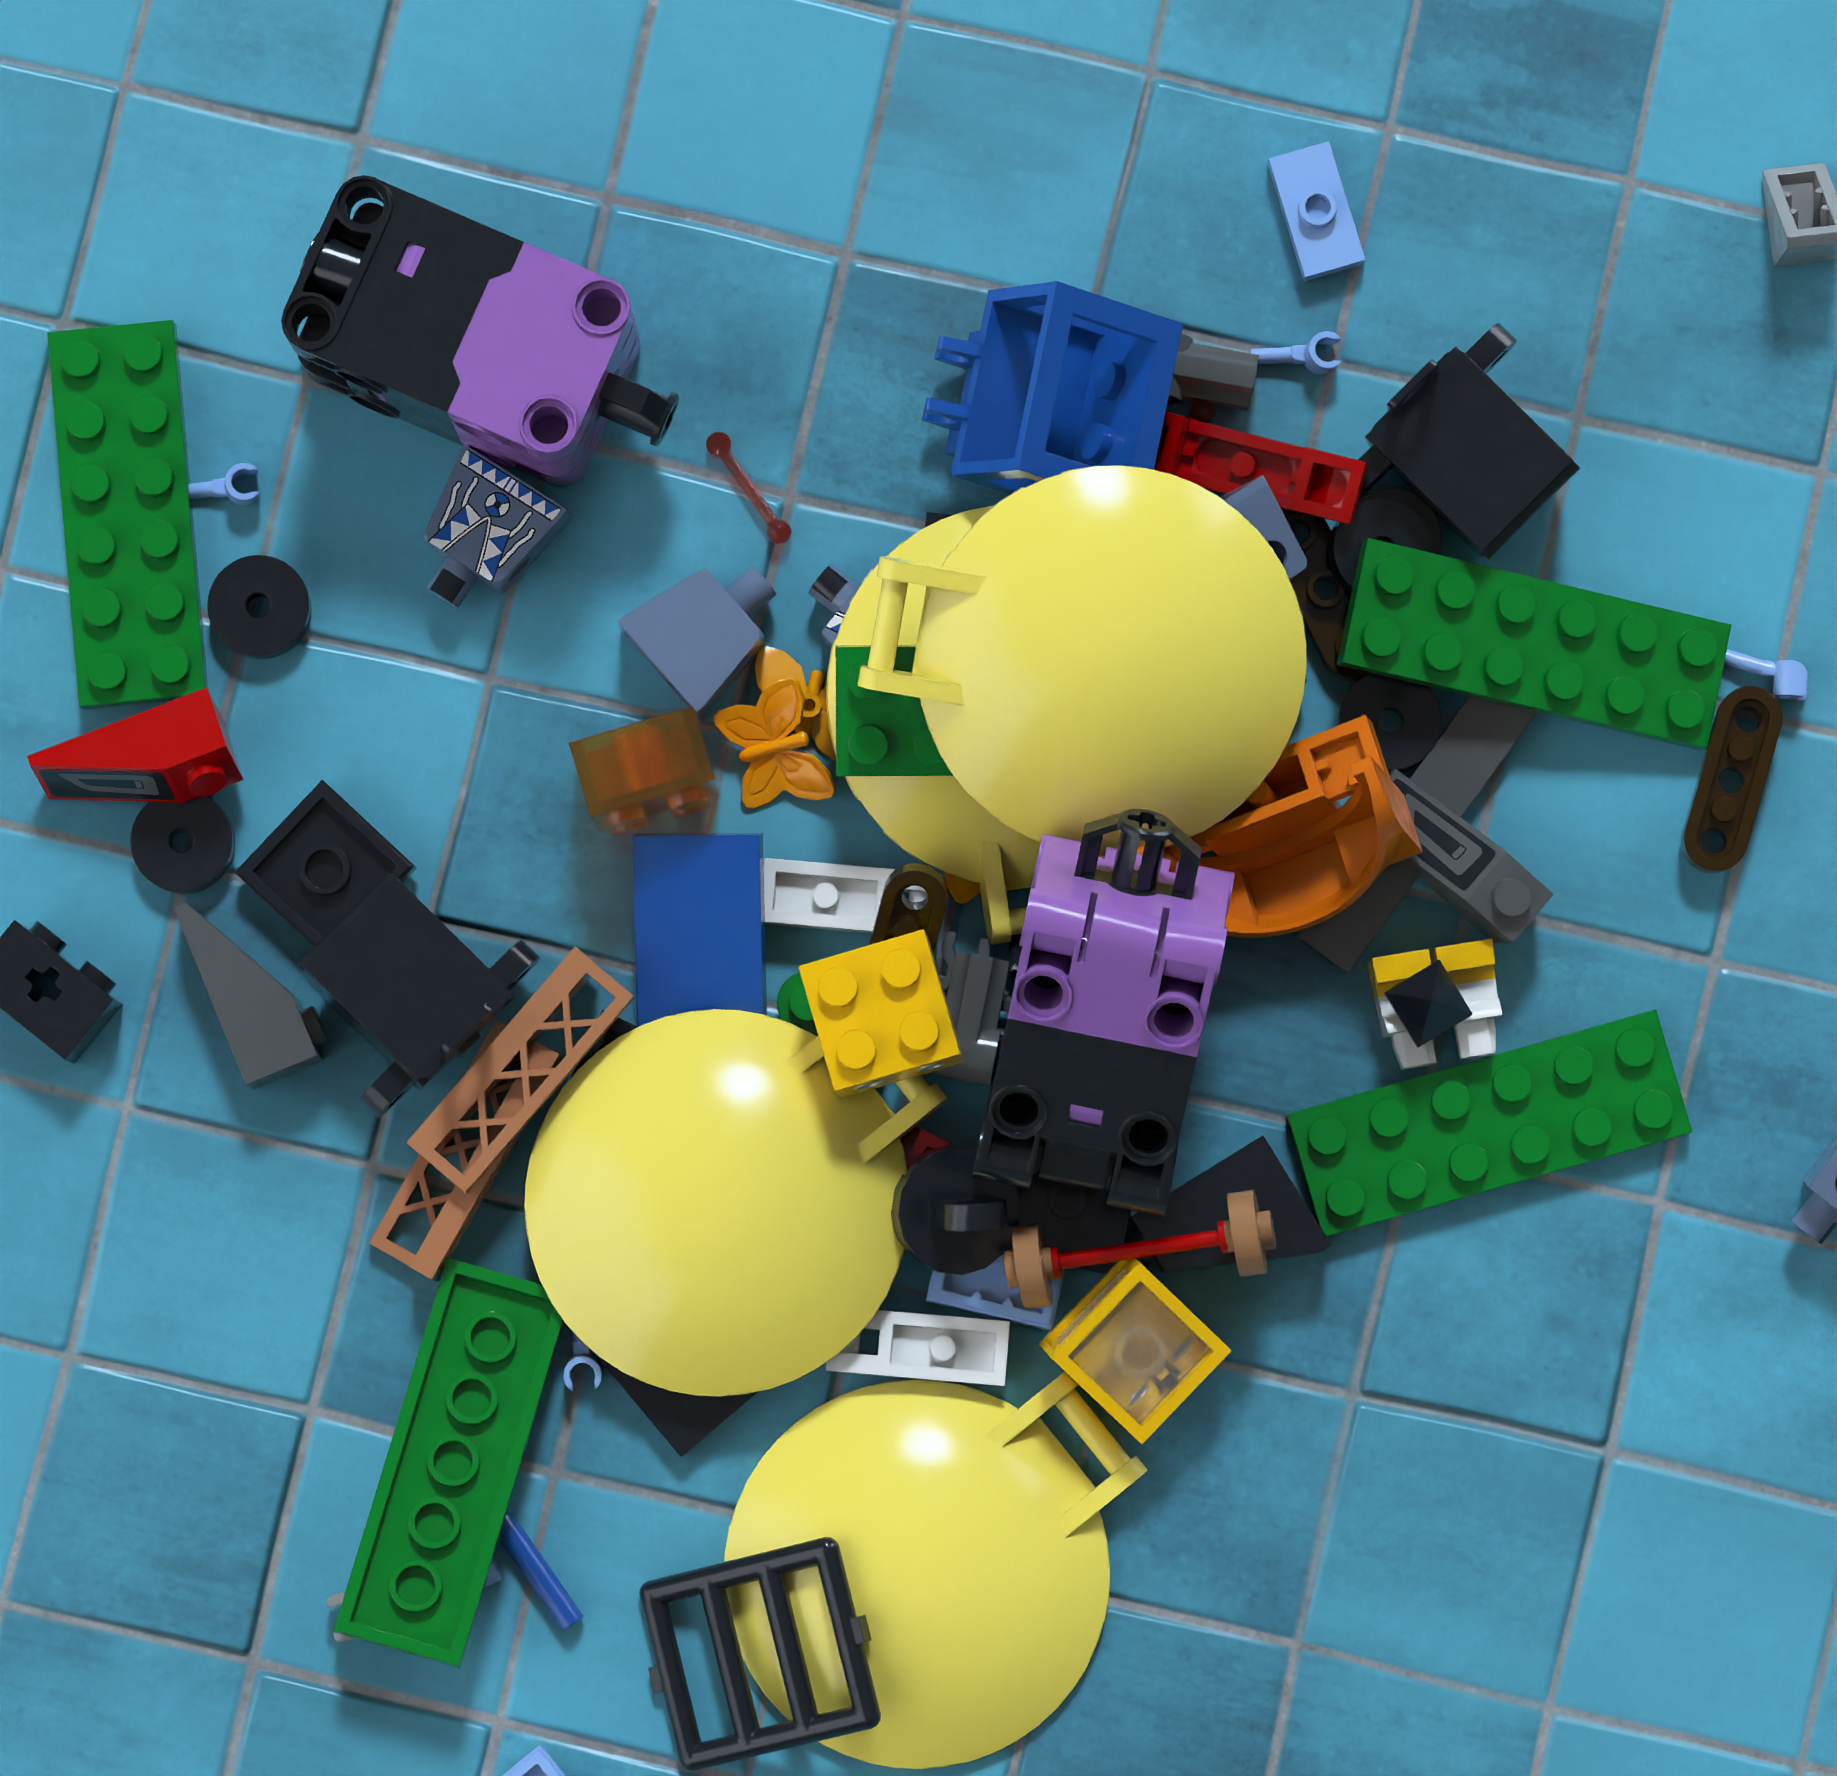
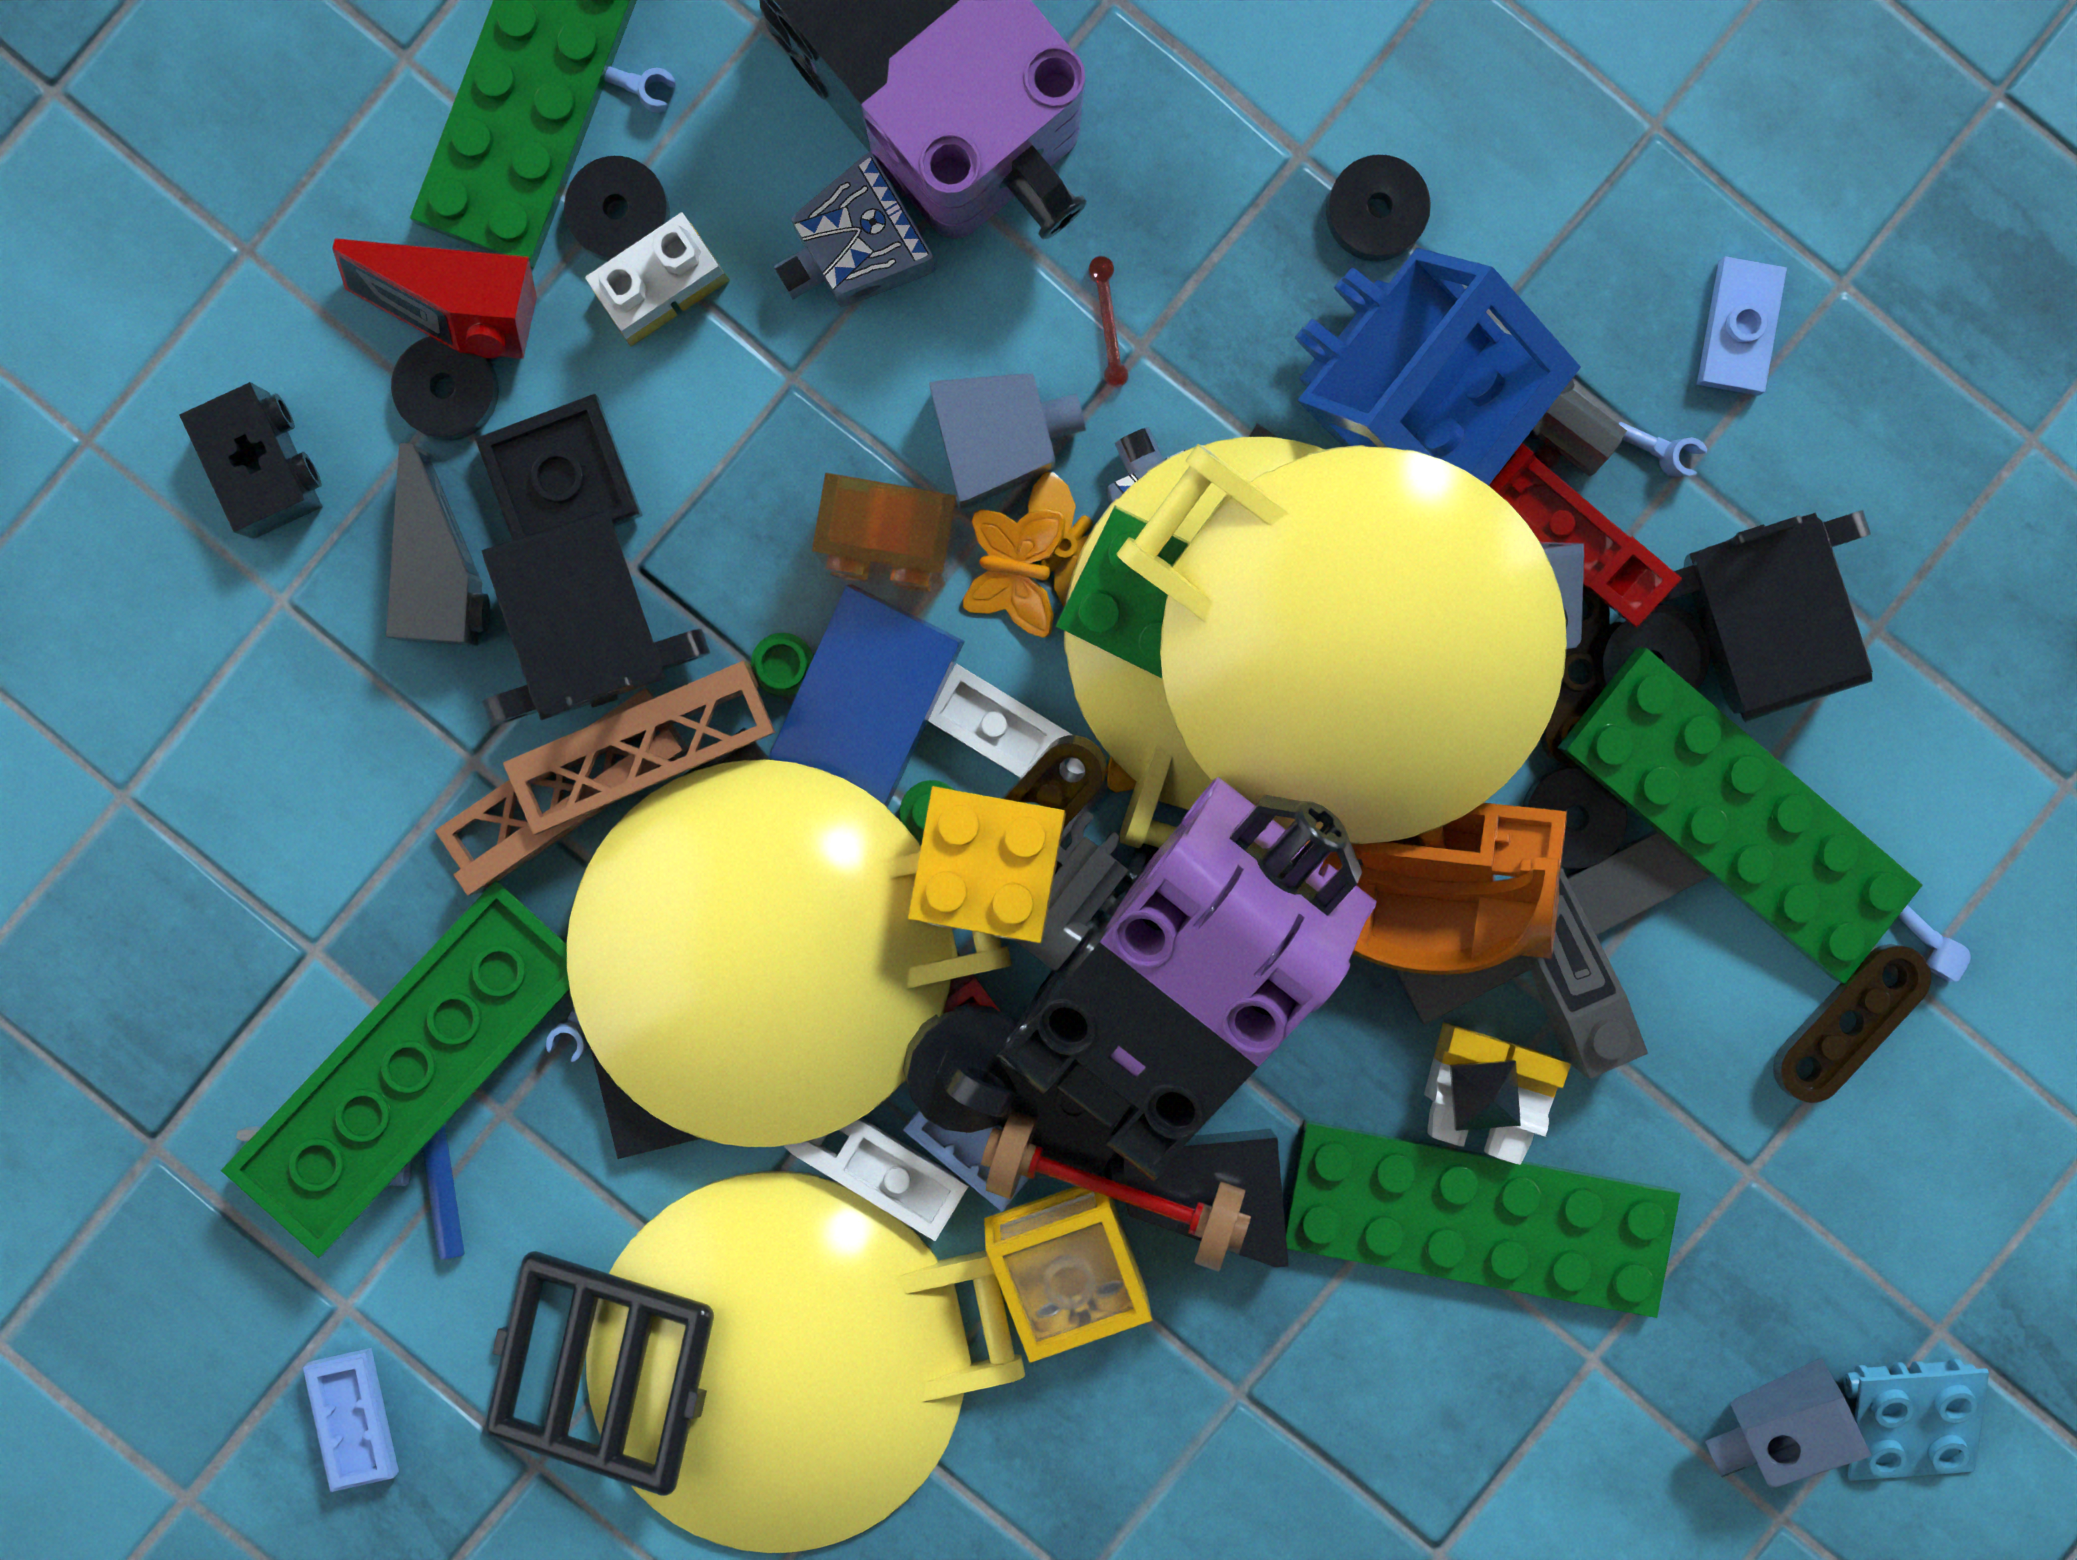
camera: 25 degrees right, 5 degrees up
(321, 655) = (654, 273): none -> white hips
(608, 937) = (781, 663): none -> green plate
(946, 240) = (1383, 179): none -> black piece

